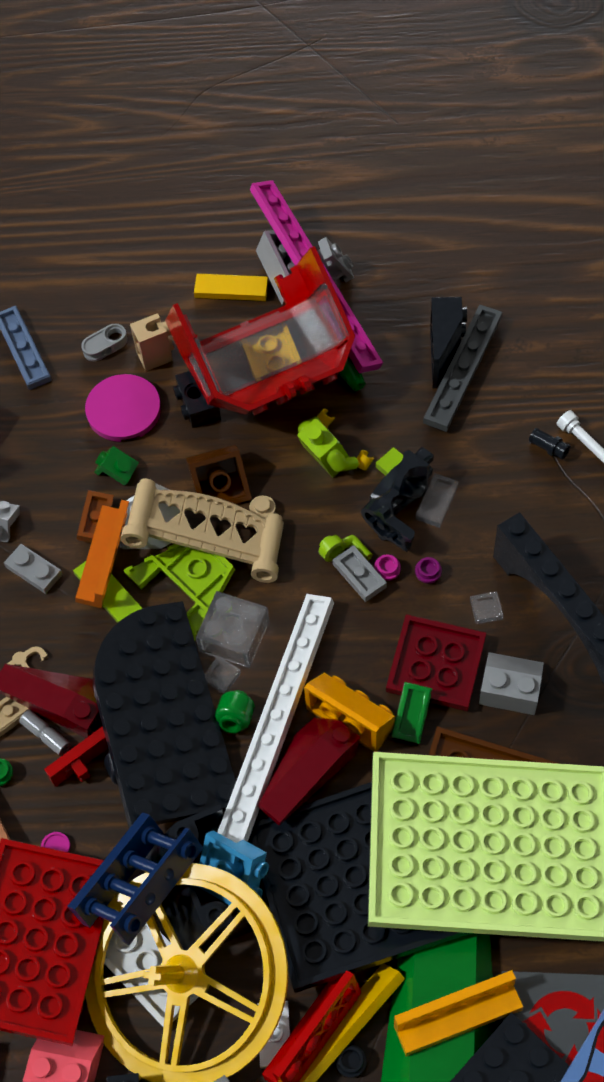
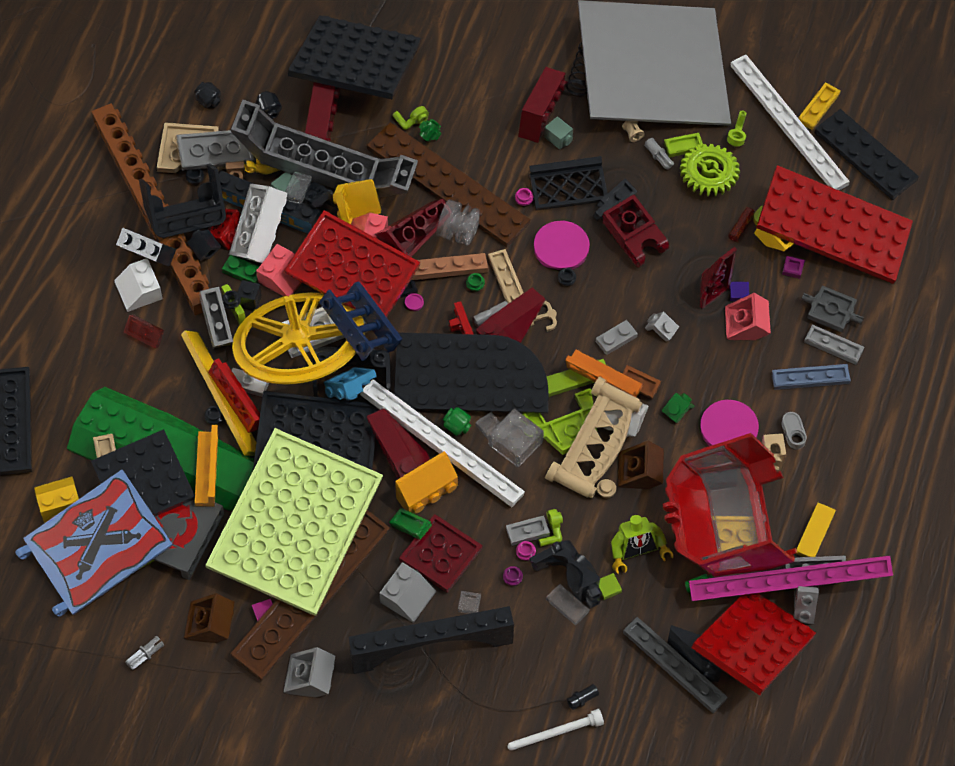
camera: 105 degrees right, 0 degrees up
(415, 281) = (754, 641): none -> red plate

